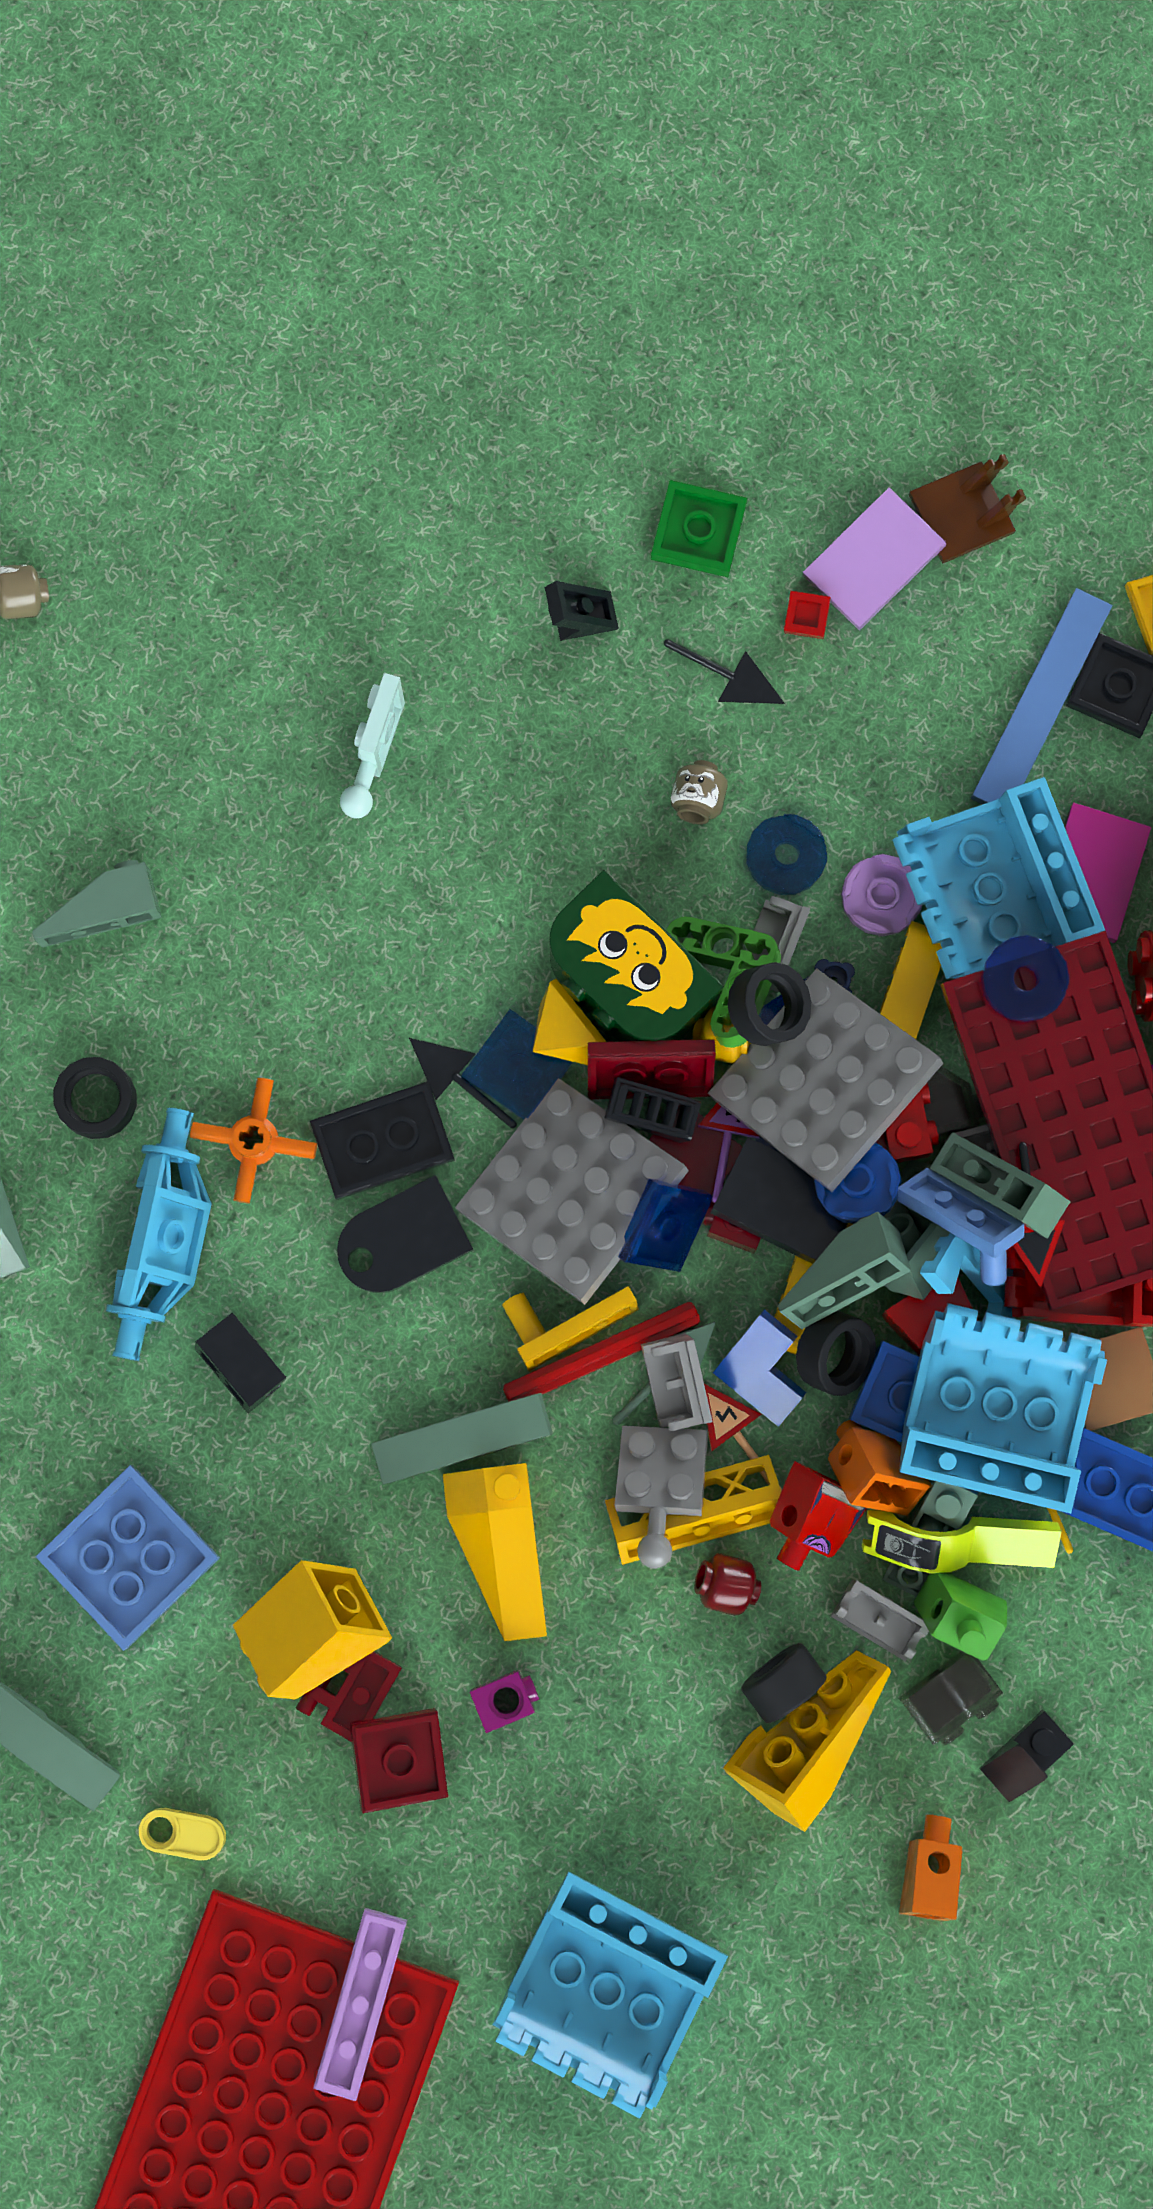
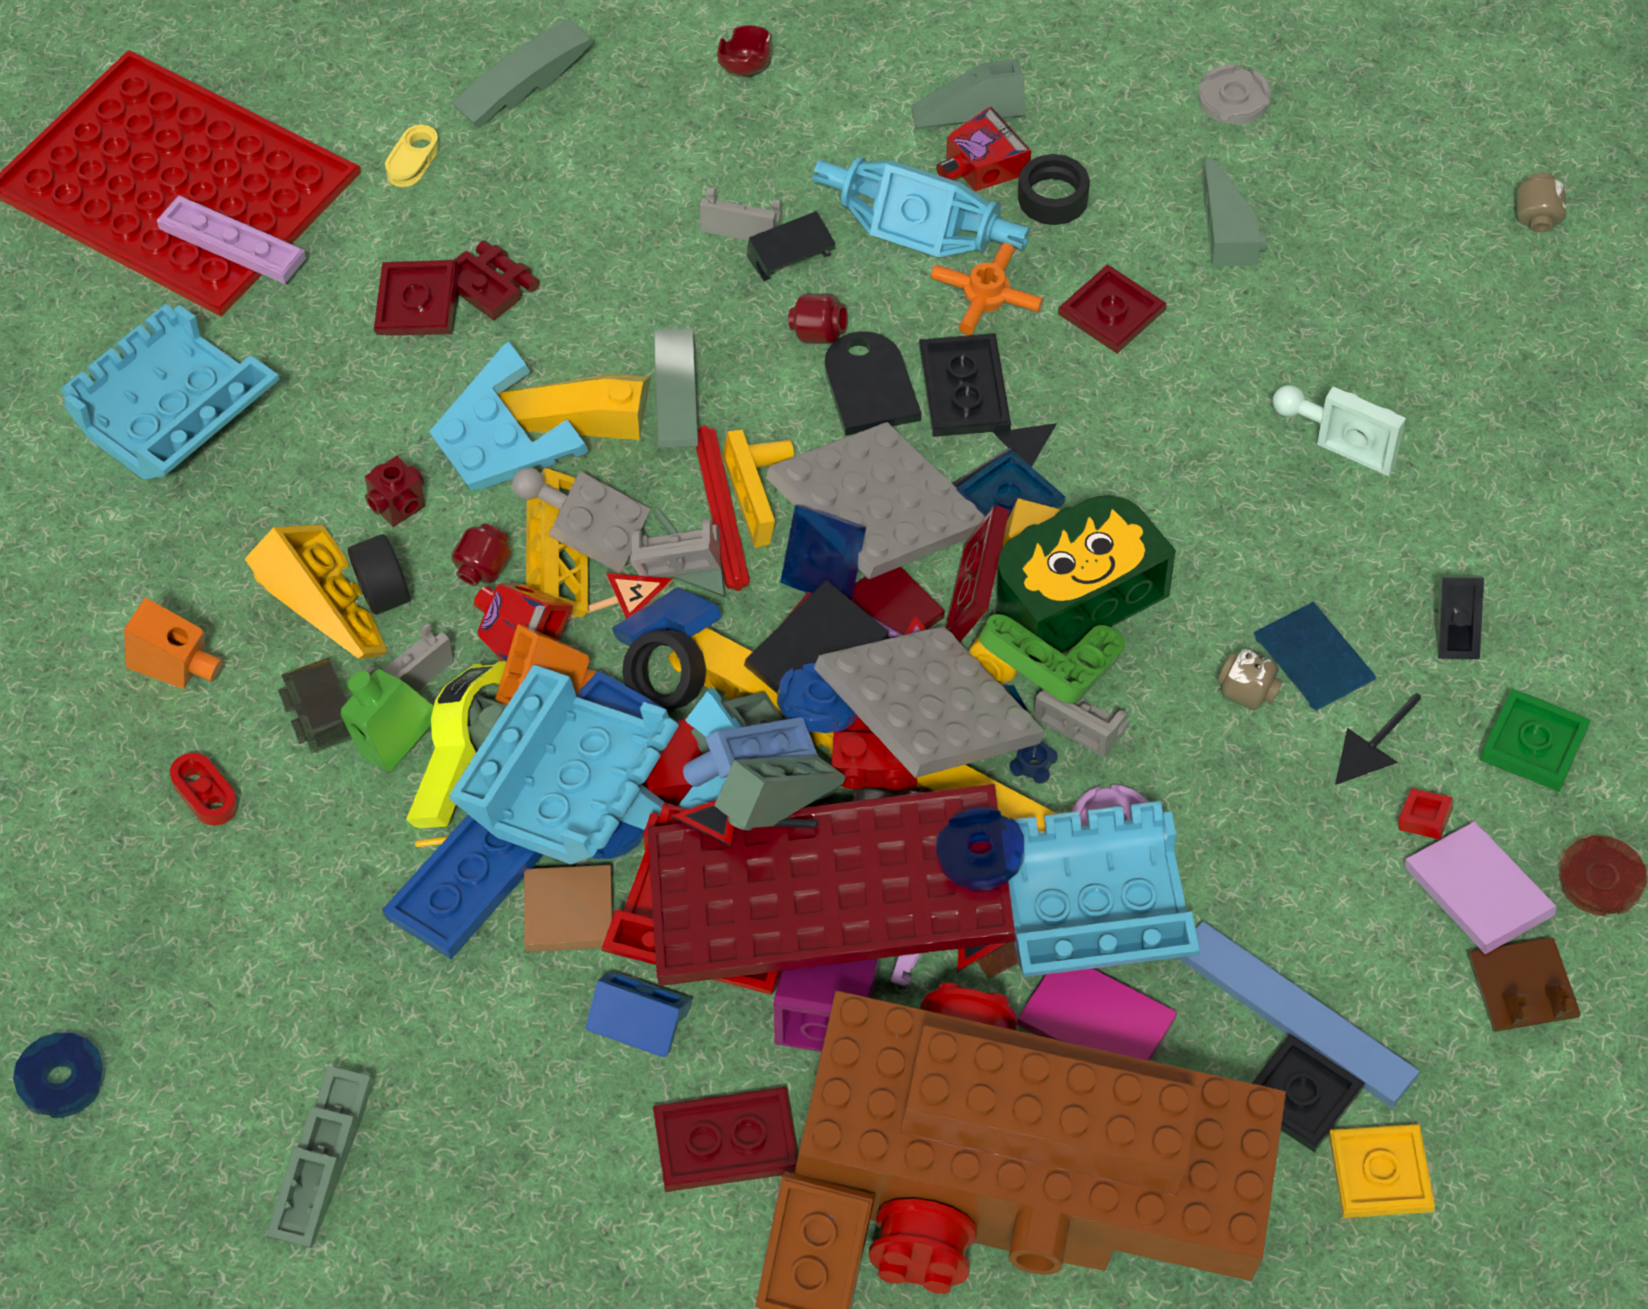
camera: 105 degrees right, 25 degrees down
(58, 1182) = (984, 152): none -> red torso
(127, 1557) = (649, 153): medium blue plate -> none
(203, 1429) = (736, 219): none -> light grey hinge
(246, 1008) = (1112, 308): none -> dark red tile
(310, 1628) = (547, 250): yellow slope -> none
(334, 1309) = (818, 318): none -> dark red head
(490, 1714) = (438, 375): magenta brick -> none
(572, 1626) = (486, 439): none -> medium azure wing
(643, 742) = (1314, 656): none -> piece
(667, 1683) = (395, 491): none -> dark red brick
(686, 1119) = (934, 602): black slope -> none
(780, 877) = (1169, 770): tile -> none
(795, 999) = (1006, 622): black tyre -> none
(829, 458) = (1602, 875): none -> clear red tile
(847, 1270) = (736, 664): sand green slope -> none
(1026, 1757) = (244, 762): black slope -> none
(1076, 1786) = (205, 791): none -> red plate

